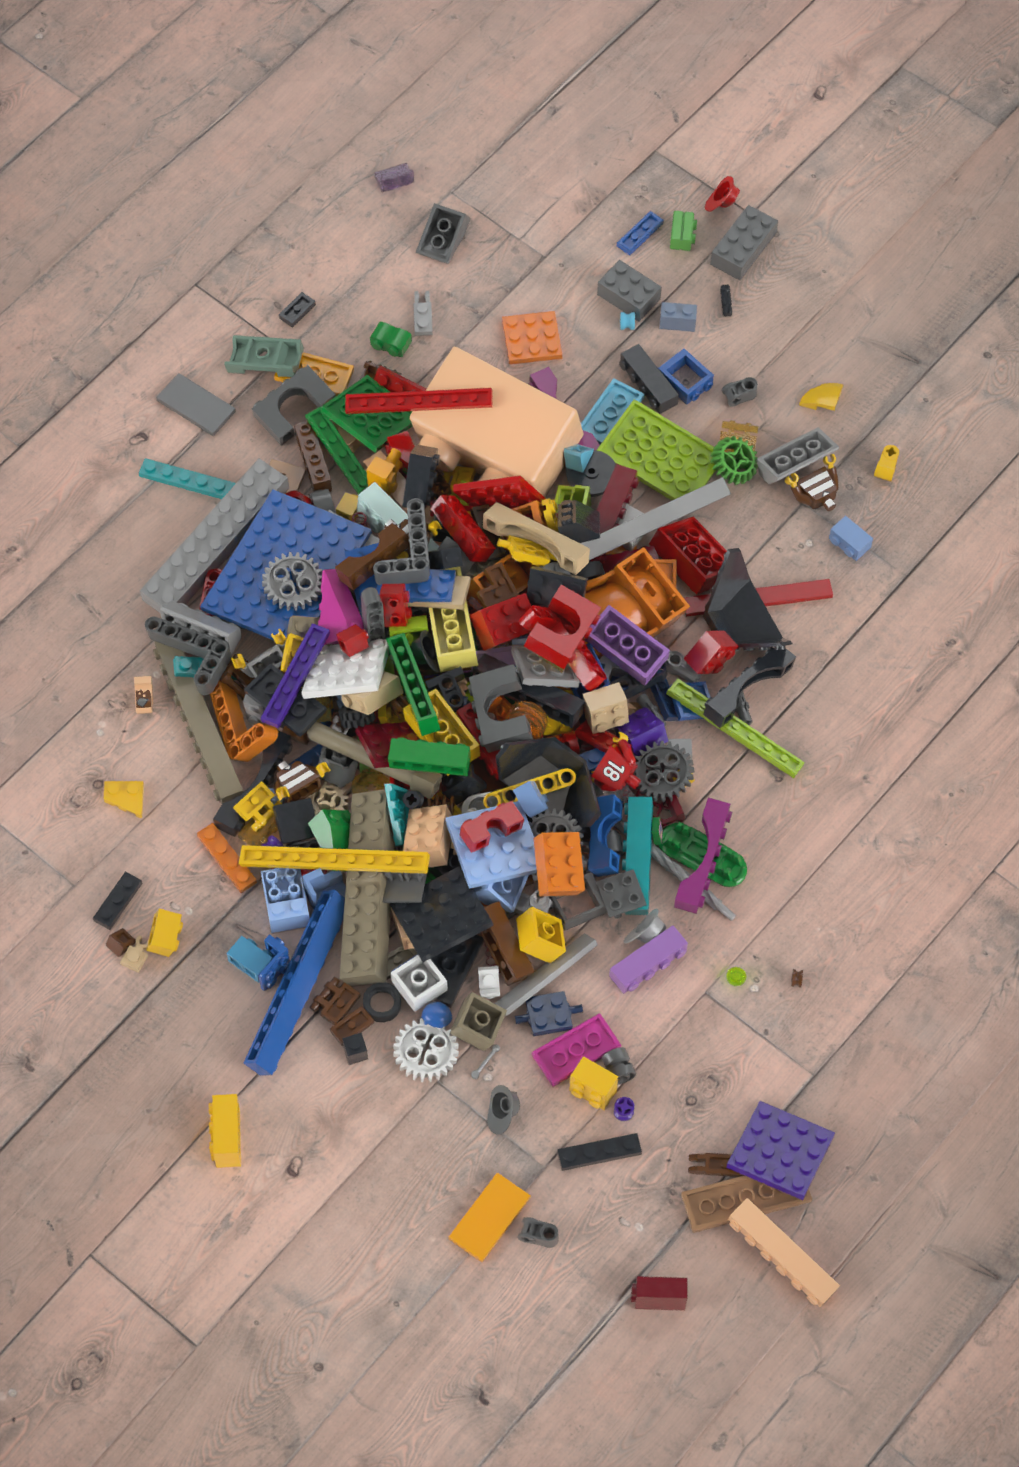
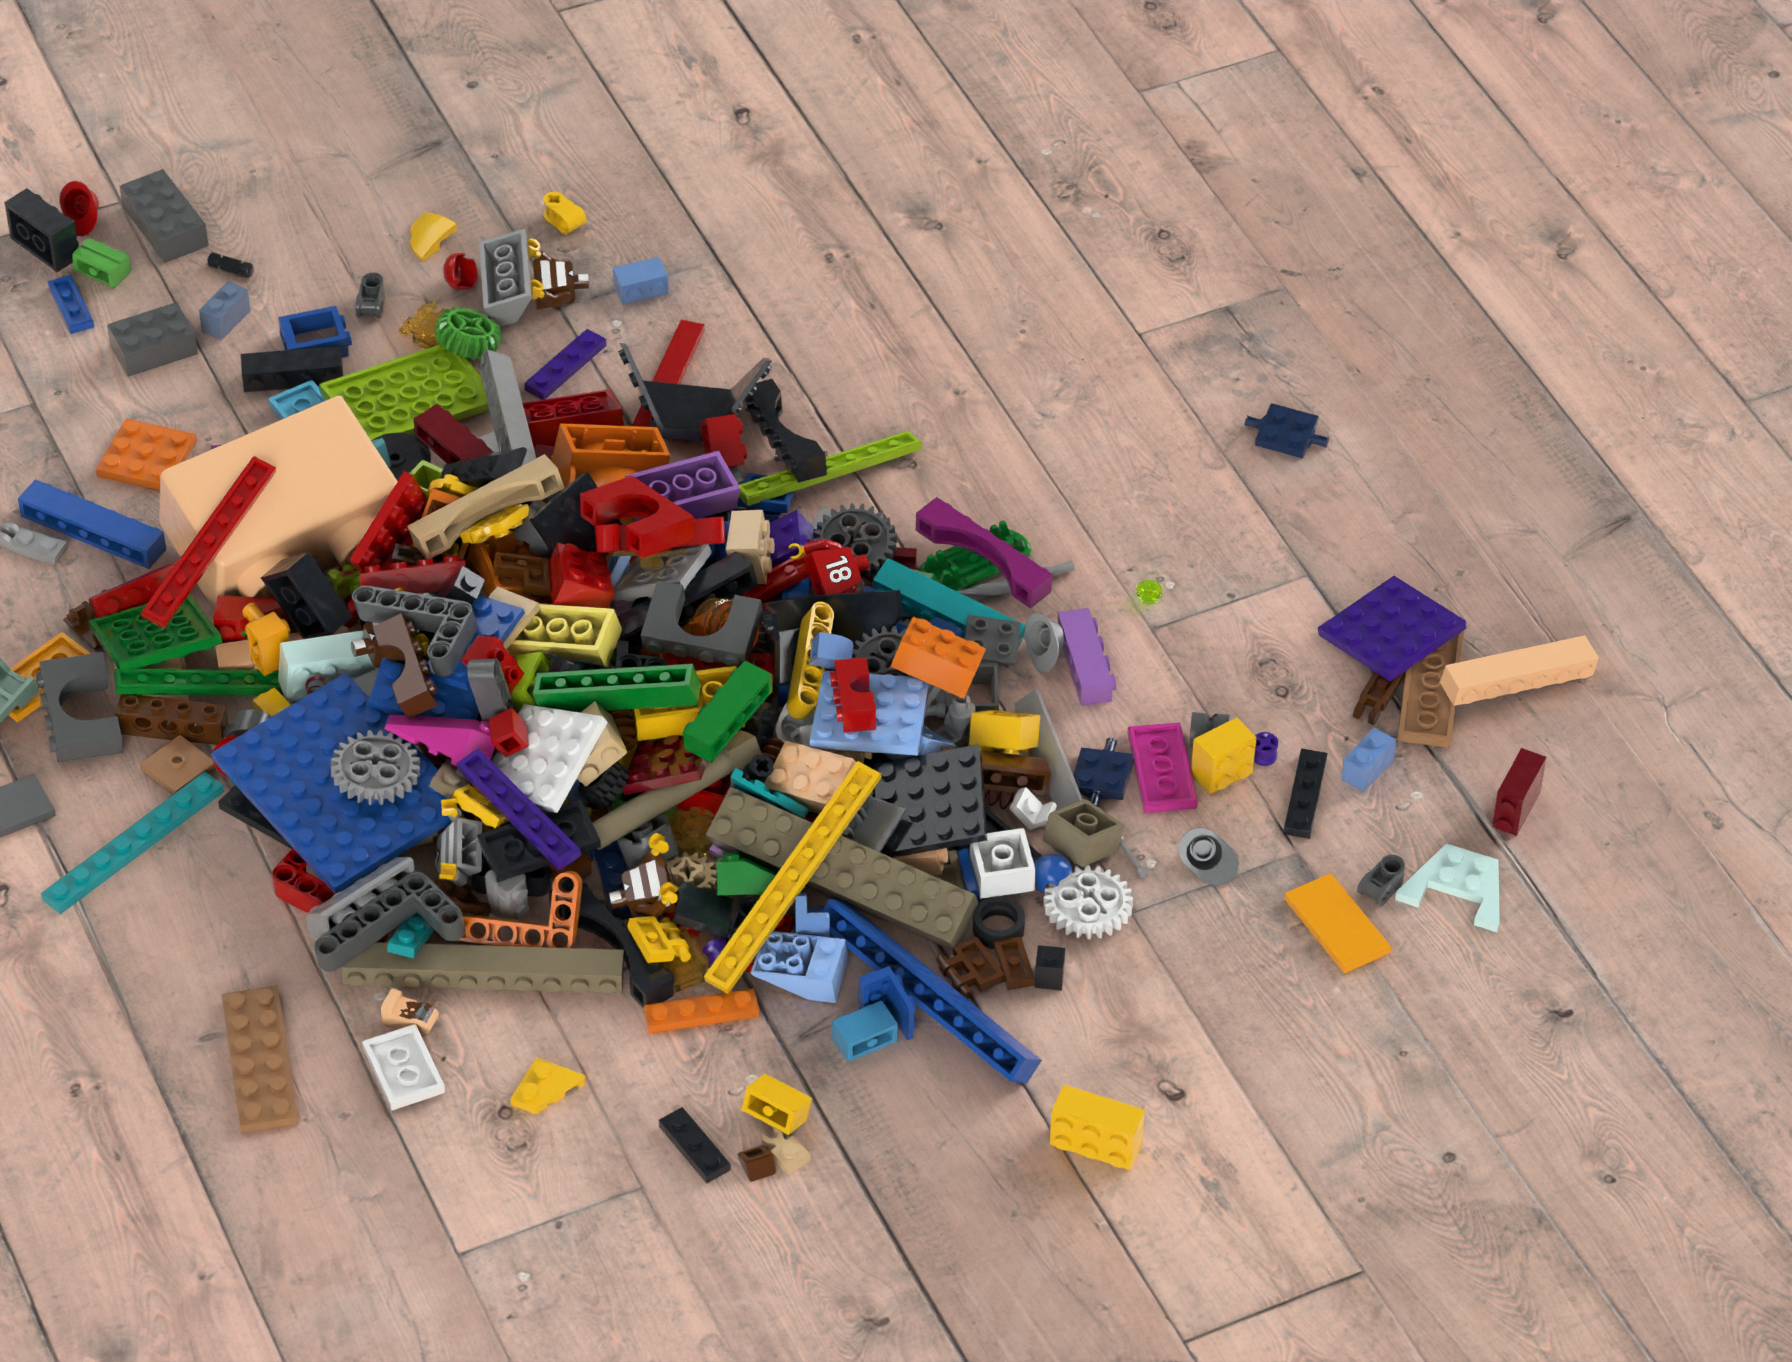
camera: 65 degrees left, 15 degrees down
(75, 632) = (259, 1059): none -> medium nougat plate
(101, 712) = (403, 1067): none -> white plate
(213, 538) = (229, 855): light grey brick -> none
(390, 339) = (48, 583): green brick -> none
(454, 321) = (92, 524): none -> blue brick
(575, 1285) = (1460, 875): none -> light aqua wing
(627, 320) = (194, 357): medium azure wheel -> none
(646, 1181) = (1368, 759): none -> medium blue brick
(685, 183) = (41, 229): none -> black brick
(749, 530) = (565, 364): none -> dark purple plate
(792, 428) = (460, 272): none -> red hair
(797, 978) = (1182, 538): reddish brown bush -> none
(947, 1006) = (1287, 430): none -> dark blue plate

